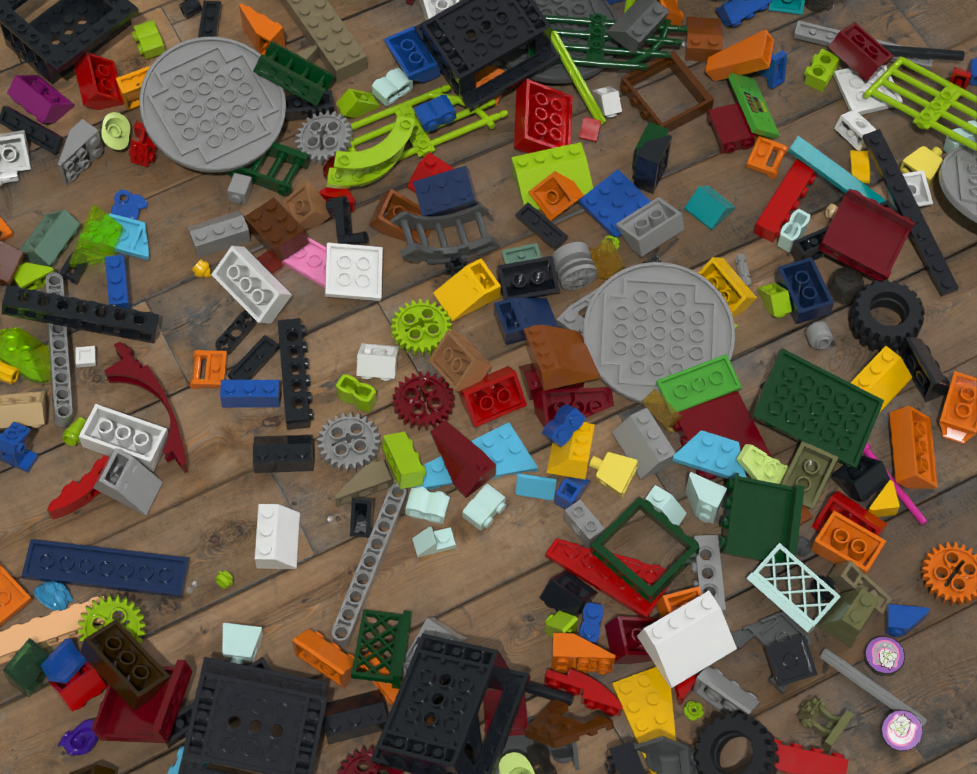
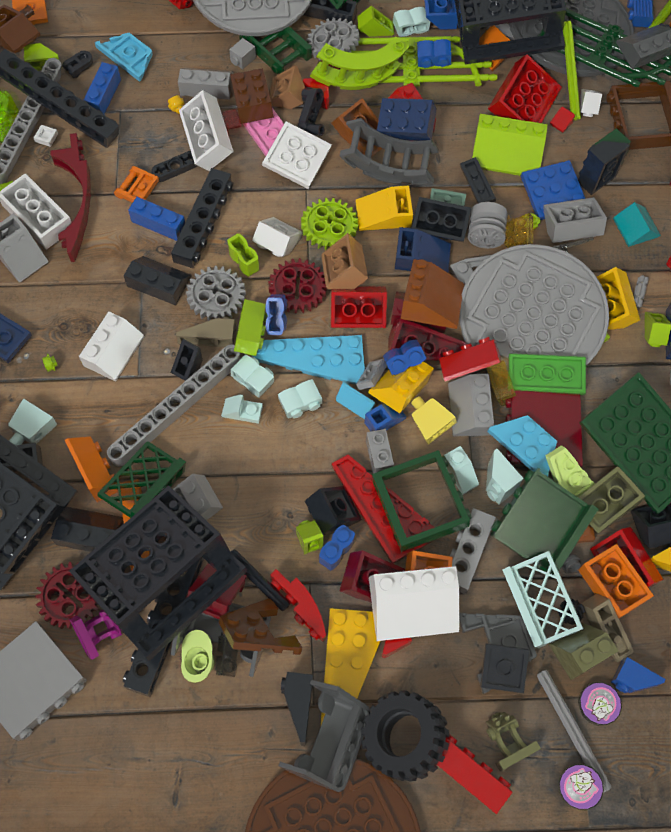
camera: 25 degrees right, 5 degrees up
(50, 238) = (72, 34): sand green slope -> none
(97, 238) = (106, 47): clear neon green wing -> none
(130, 206) = (149, 33): blue plate -> none
(254, 359) = (177, 193): black plate -> none
(421, 437) = (275, 309): none -> blue brick
(455, 265) = (384, 183): black gear -> none
(463, 459) = (302, 351): dark red wedge -> none
(539, 454) = (371, 374): none -> light grey plate
(555, 194) = (503, 159): orange slope -> none
(579, 654) = (305, 564): orange slope -> none
(624, 401) = (469, 358): none -> red slope
(693, 716) = (391, 663): lime plate -> none
(724, 694) = (428, 670): light grey slope -> none

